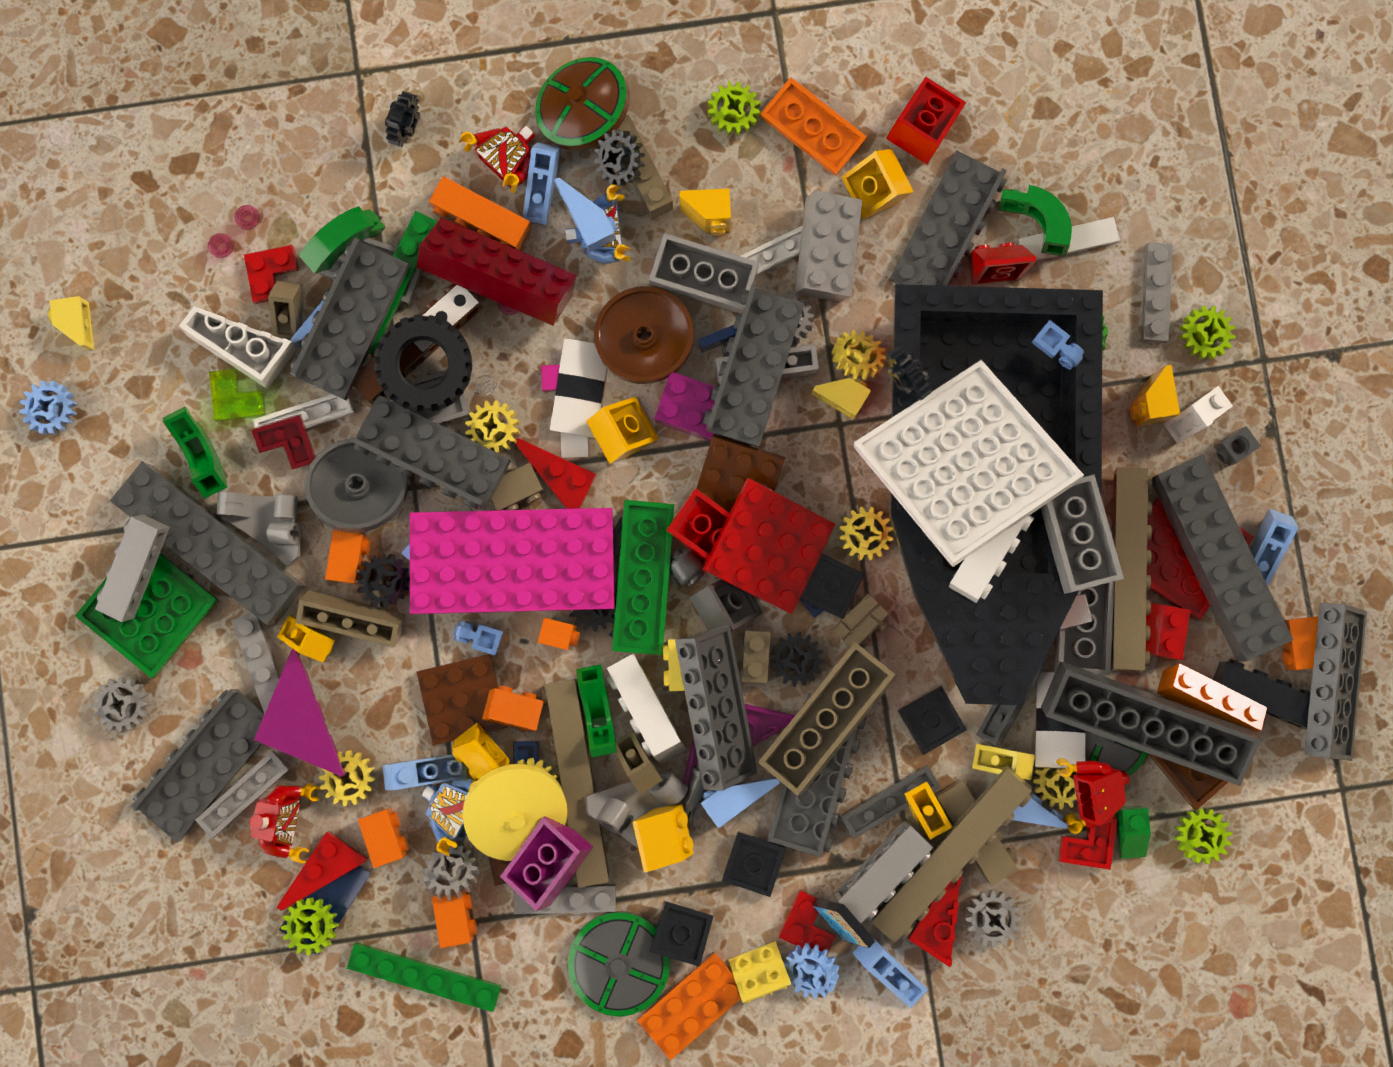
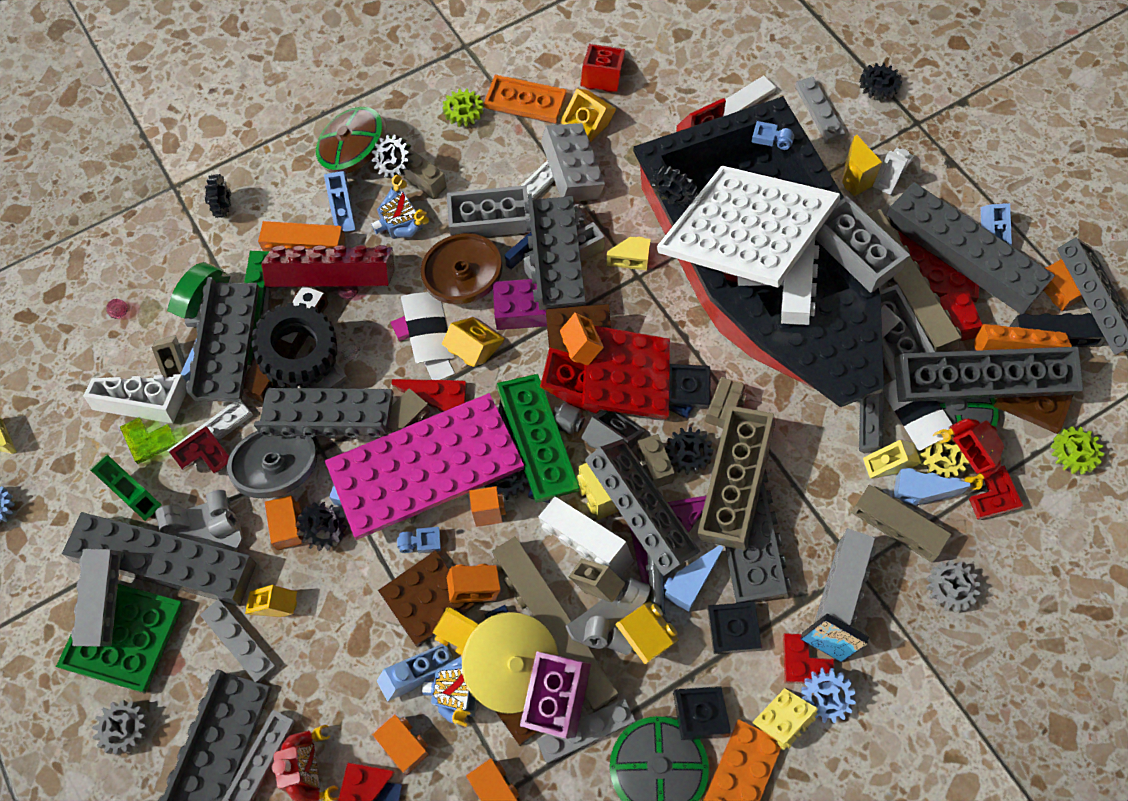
camera: 20 degrees left, 20 degrees down
(214, 242) = (99, 331): clear pink plate -> none
(263, 268) = (142, 337): red plate -> none
(296, 720) = (286, 671): magenta tile -> none
(350, 618) = (304, 567): dark tan brick -> none
(358, 782) = (350, 694): light yellow gear -> none
(463, 870) = (474, 747): light grey gear -> none
(494, 416) = (371, 371): light yellow gear -> none
(503, 153) = (302, 193): torso -> none
(588, 217) = (384, 203): light blue slope -> none
(597, 710) = (543, 554): green arch -> none
(707, 209) = (471, 169): yellow slope -> none
(733, 495) = (581, 339): none -> orange brick
(858, 355) = (629, 222): light yellow gear -> none
(868, 522) = (693, 343): light yellow gear -> none
(886, 803) = (819, 529): dark grey plate -> none
(891, 972) = (894, 667): light blue slope -> none
(927, 811) = (852, 516): yellow slope -> none
(932, 720) = (818, 455): black tile -> none
(937, 929) = (910, 612): red wing -> none
(949, 223) = (650, 113): dark grey bracket -> none
(952, 853) = (892, 542): dark tan brick -> none
(1046, 211) = (713, 86): green arch -> none
(1133, 831) = (1023, 469): green slope -> none
(1198, 339) = (869, 117): lime gear -> none
(1246, 442) = (934, 176): dark grey brick -> none
(1257, 281) = (880, 81): none -> black gear

